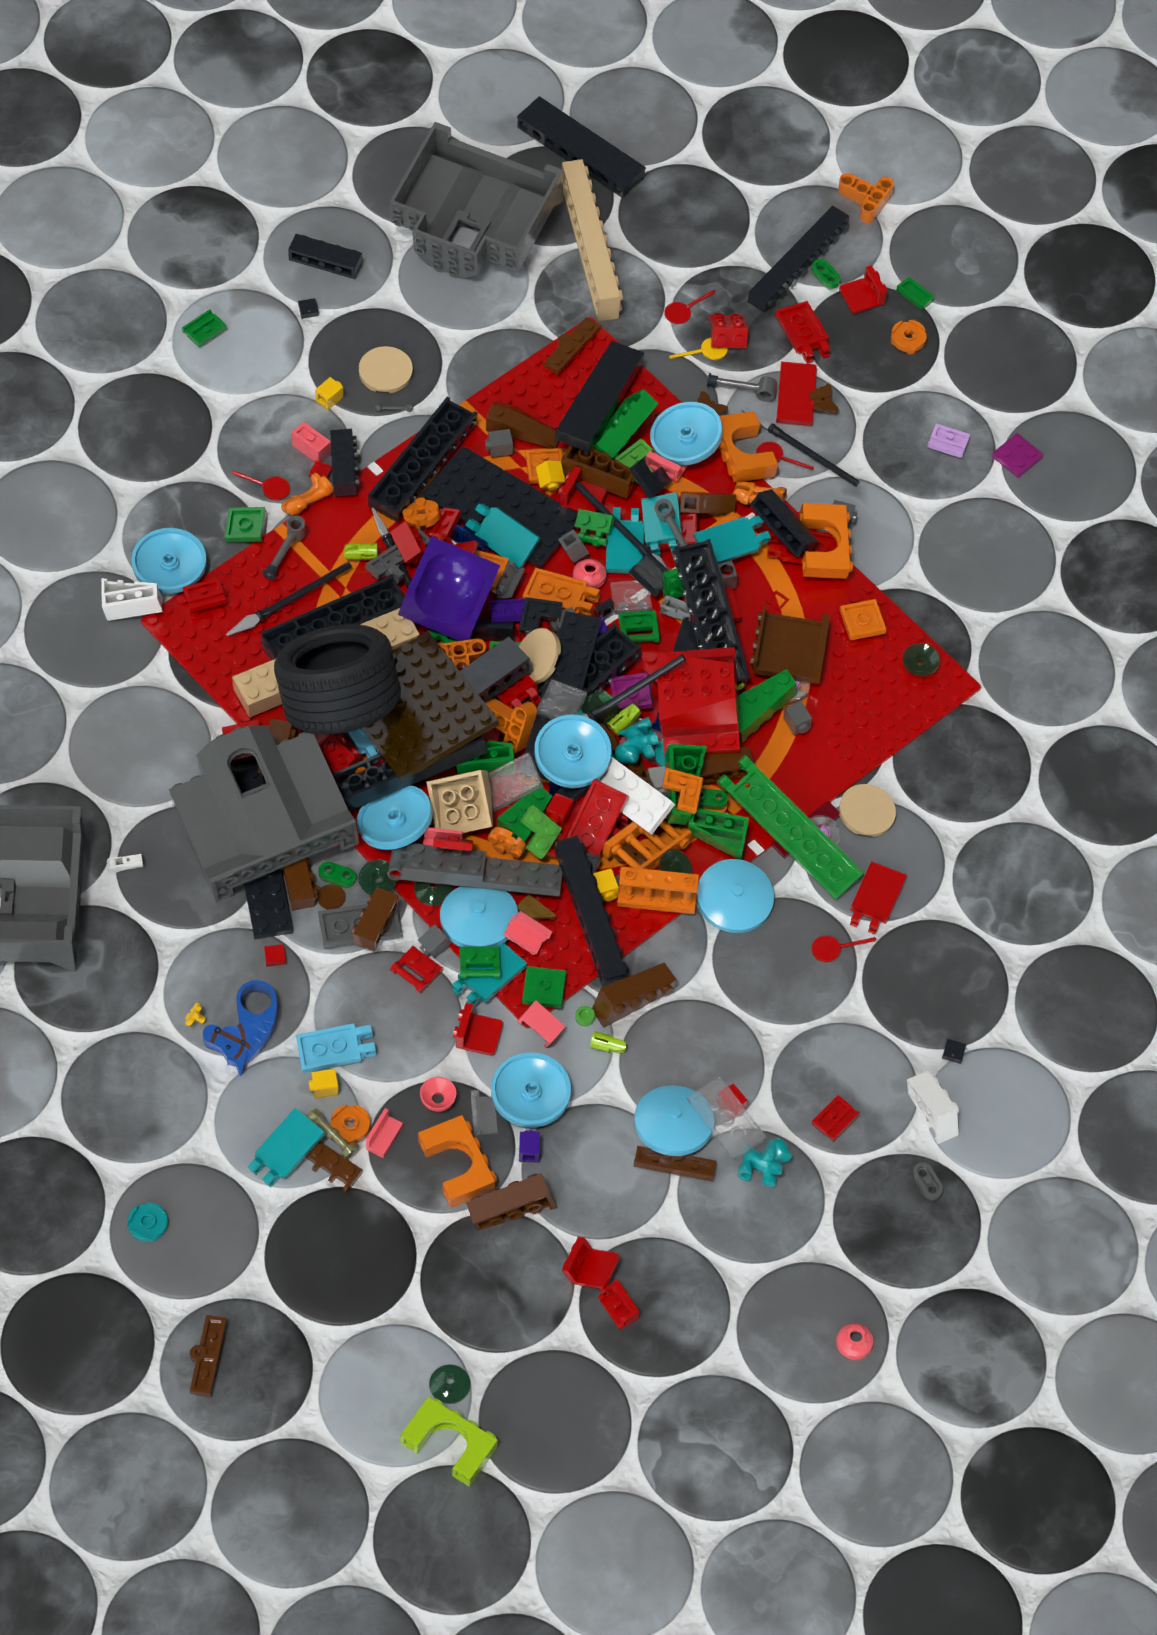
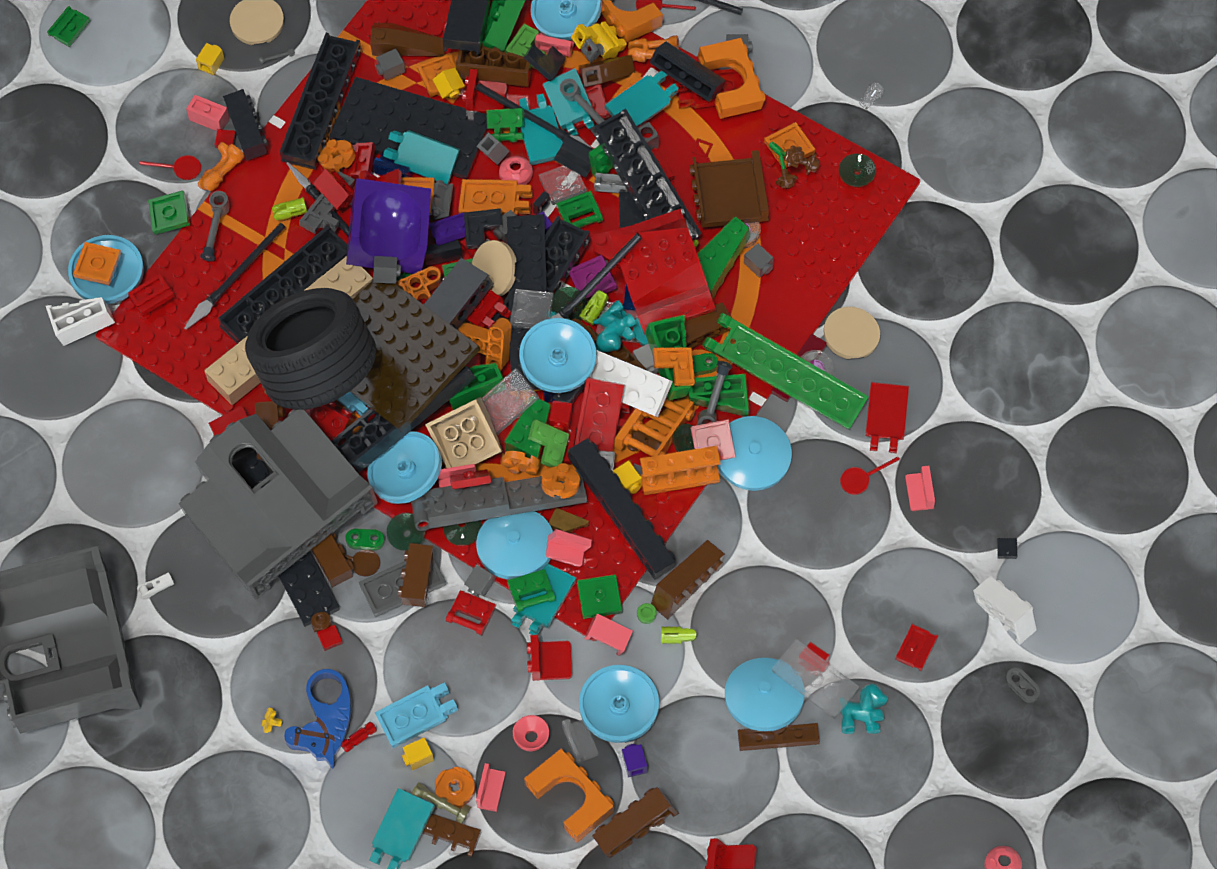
camera: 10 degrees left, 5 degrees up
(162, 552) = (97, 263): none -> orange plate
(271, 937) = (320, 621): none -> reddish brown plate
(273, 1053) = (358, 736): none -> red axle
(433, 629) = (385, 269): none -> dark grey brick
(530, 869) = (560, 473): none -> orange plate
(705, 866) = (717, 435): none -> plate
(709, 473) = (601, 40): none -> yellow hips
(726, 806) = (722, 370): none -> dark grey piece
(861, 629) = (793, 157): none -> reddish brown plant
(886, 974) = (920, 490): none -> coral panel
(959, 594) = (872, 94): none -> clear cone

